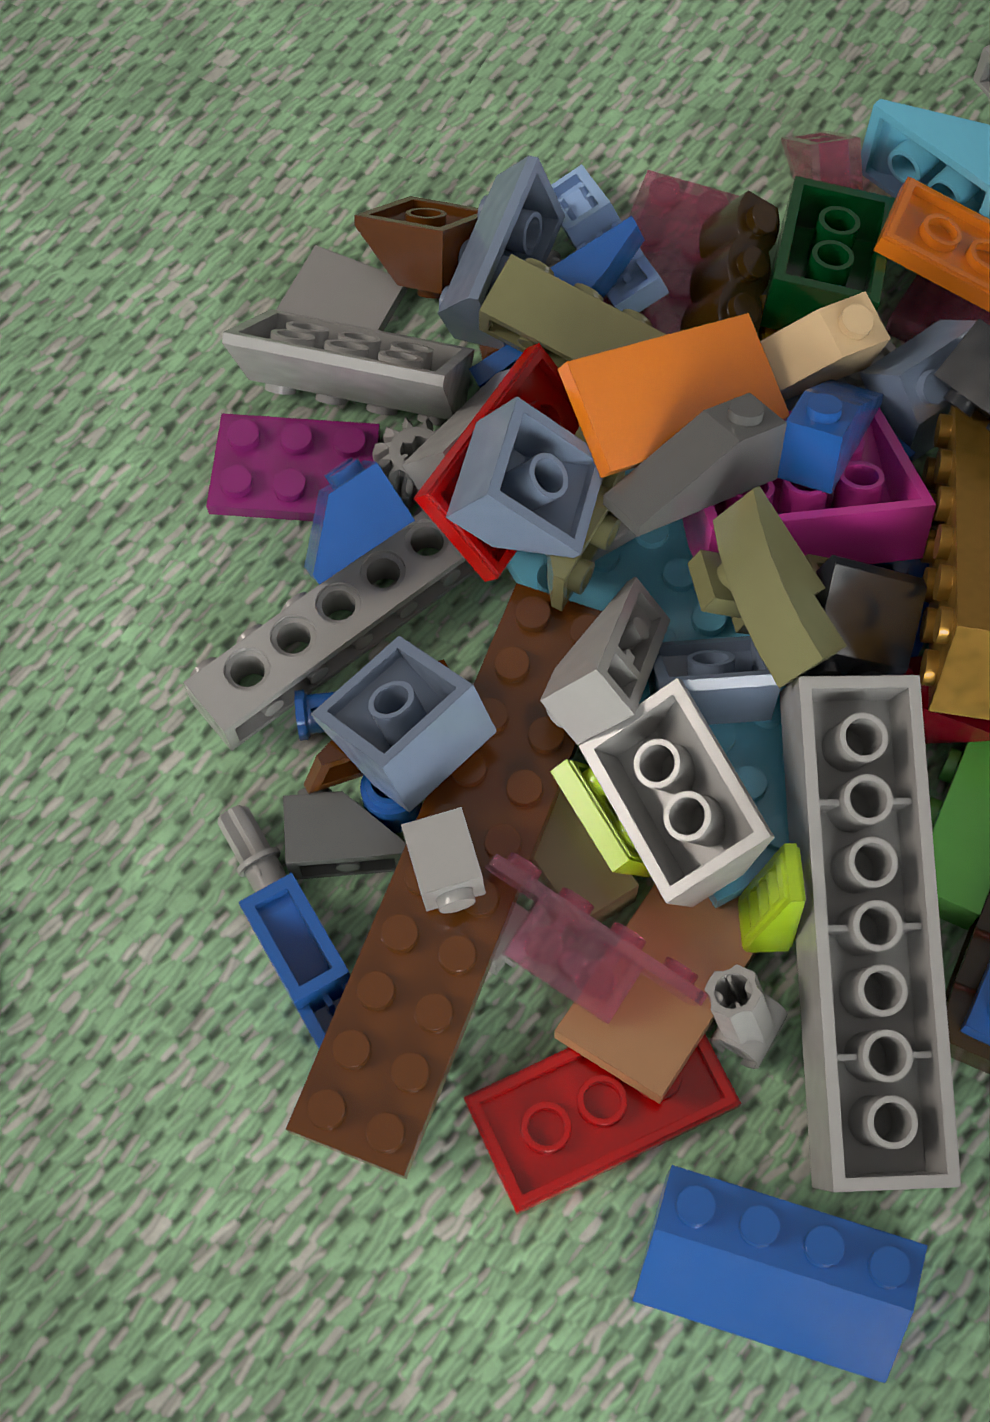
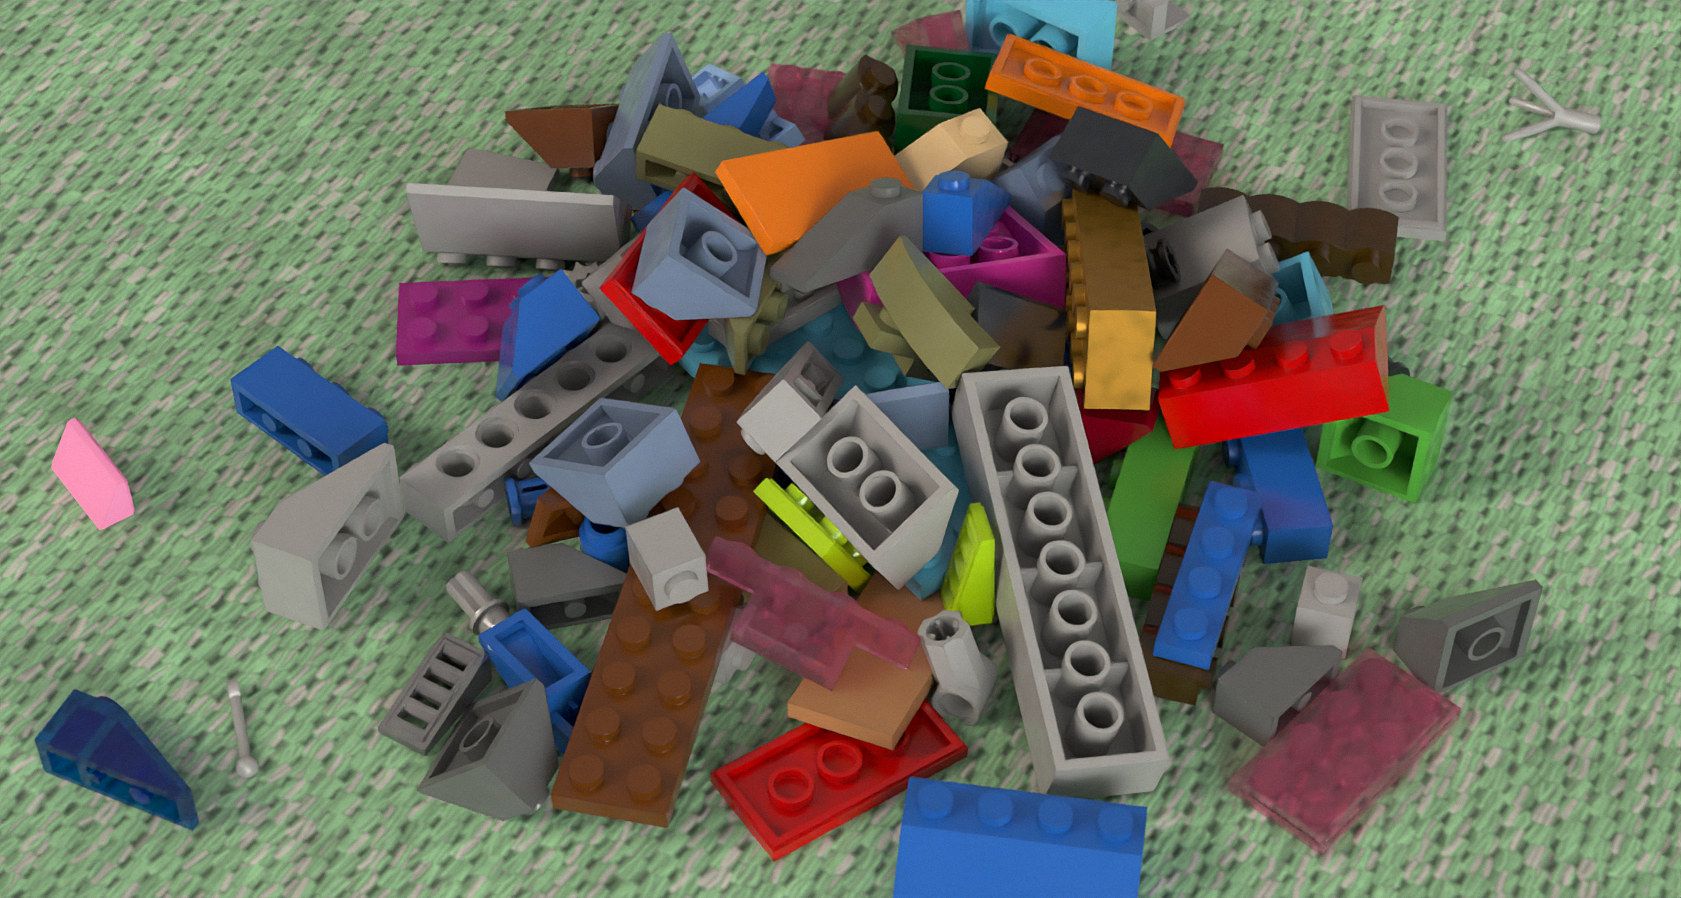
camera: 10 degrees left, 20 degrees down
(96, 753) = (327, 537): none -> light grey slope
(108, 577) = (306, 411): none -> blue brick
(221, 952) = (453, 663): none -> flat silver slope
(241, 1048) = (498, 755): none -> dark grey slope

